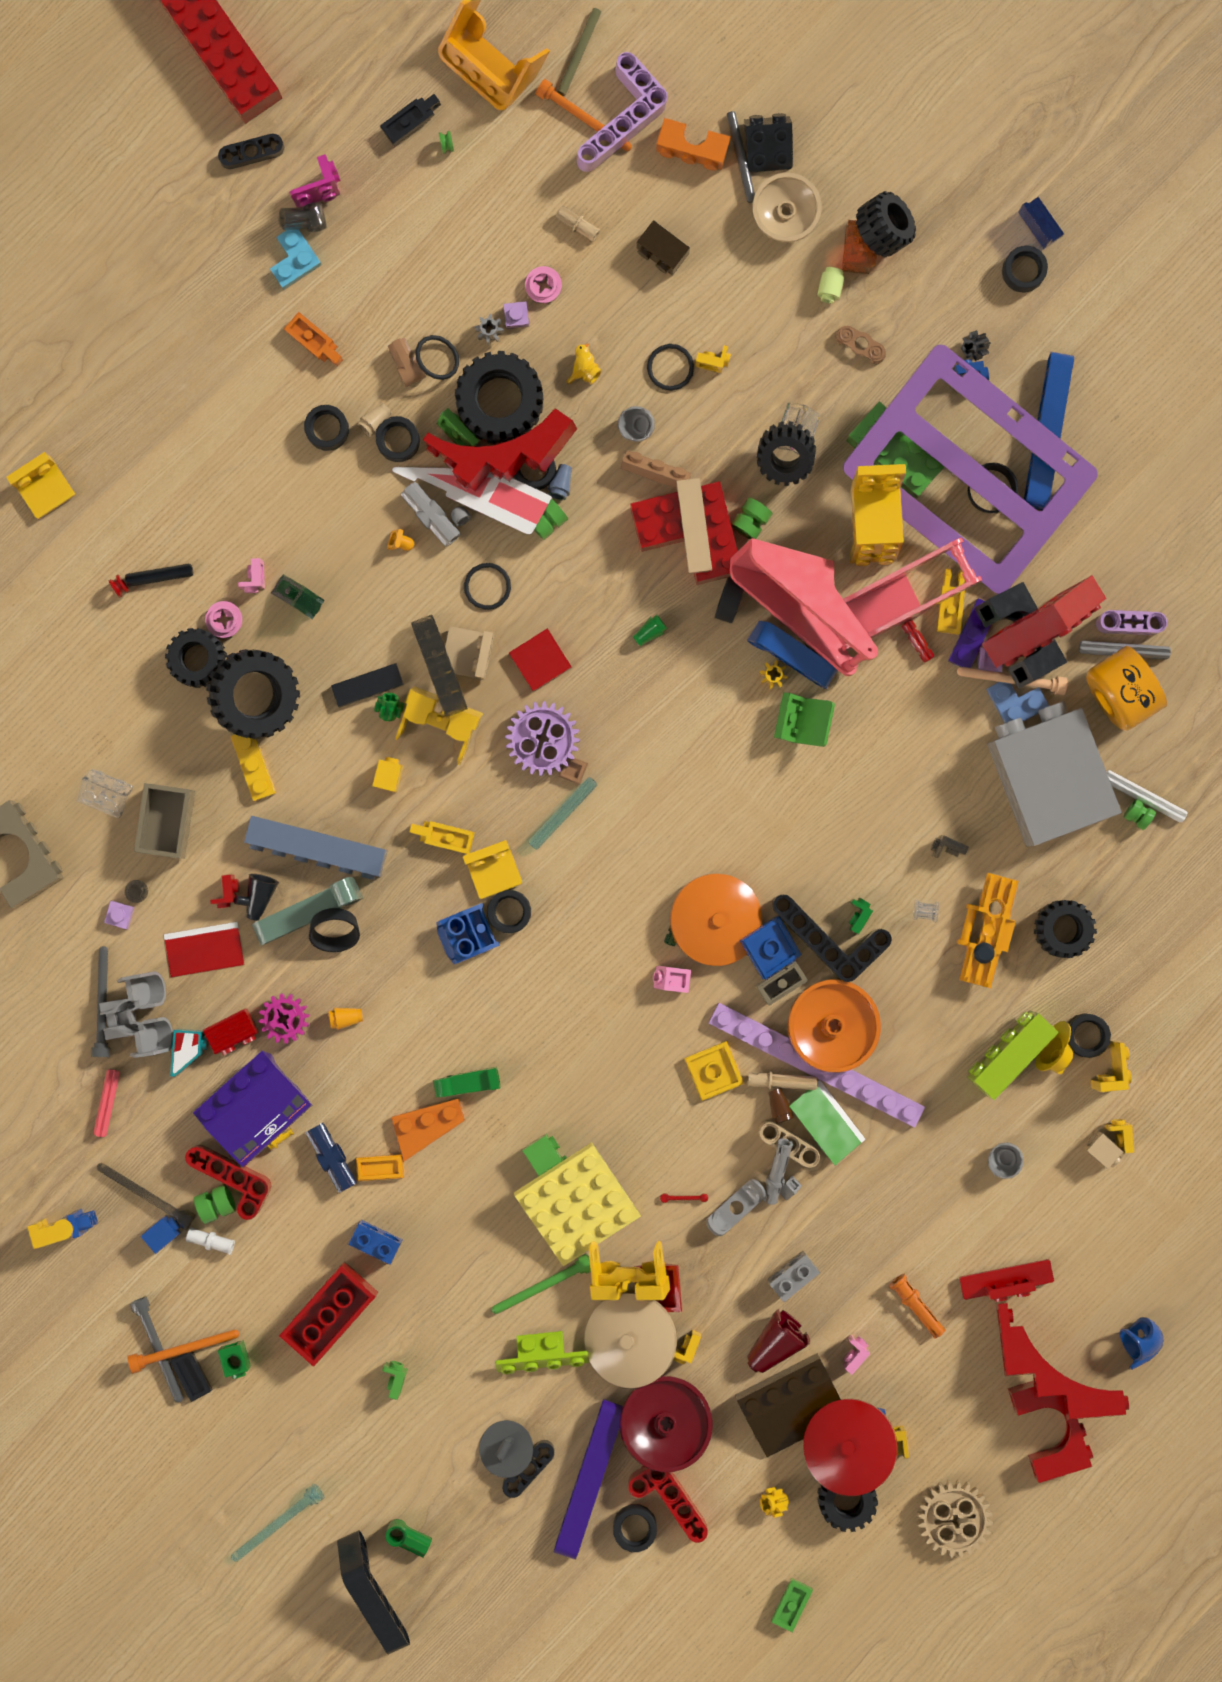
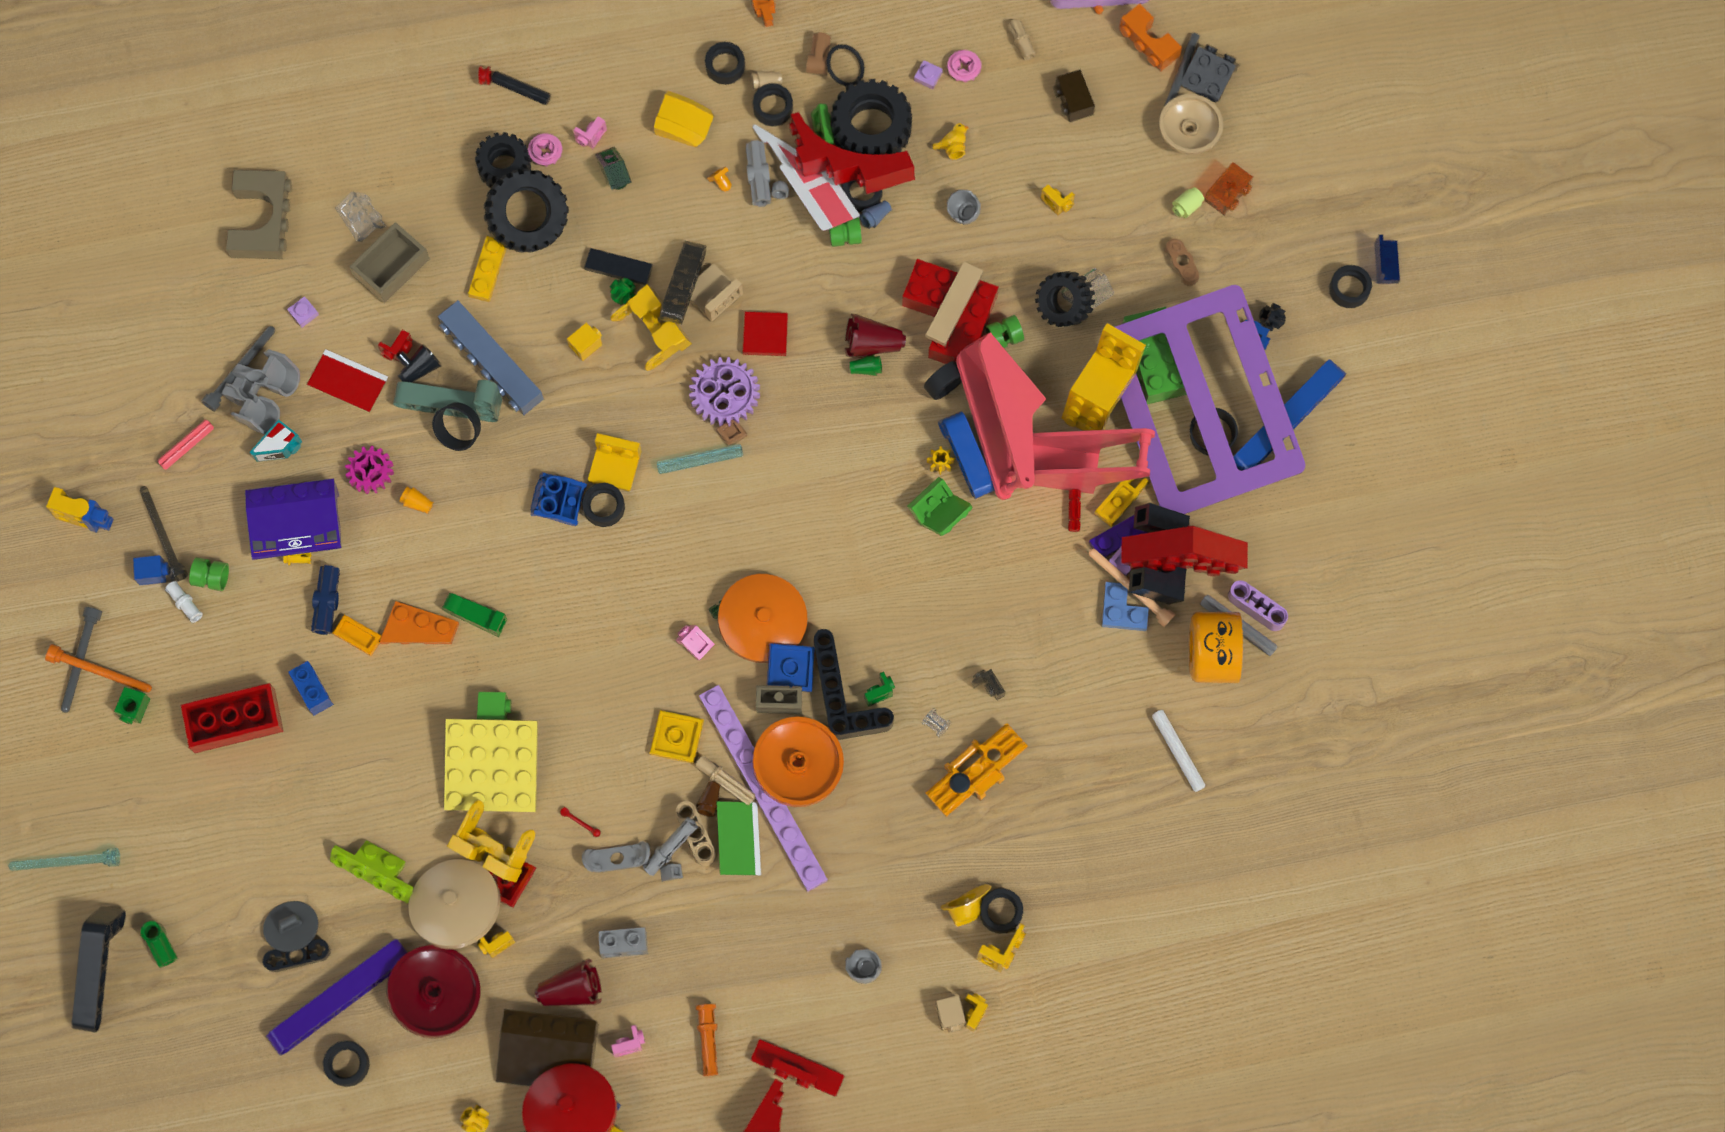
camera: 30 degrees right, 15 degrees down
(136, 891) = (329, 302): clear smoke plate -> none
(191, 1375) = (88, 697): black tile -> none
(227, 1177) = (235, 559): red beam -> none
(231, 1031) = (321, 453): red brick -> none
(328, 507) = (682, 120): none -> yellow slope
(395, 1383) = (245, 811): bright green bracket -> none
(444, 836) = (594, 414): yellow hinge -> none
(487, 565) = (766, 236): black piece -> none
(493, 335) = (899, 70): light grey gear -> none
(581, 1265) = (456, 818): bright green piece -> none
(638, 603) = (871, 337): none -> dark red cone
(653, 469) = (950, 245): medium nougat plate -> none
(672, 346) = (1034, 199): black piece -> none
(673, 1501) = (391, 1063): red beam -> none
(886, 224) = (1259, 181): black tyre -> none
(1012, 1054) = (927, 879): lime brick -> none
(1053, 774) = (1112, 679): light grey brick -> none
(1084, 925) = (1043, 791): black tyre -> none
(1139, 814) = (1164, 760): bright green wheel -> none

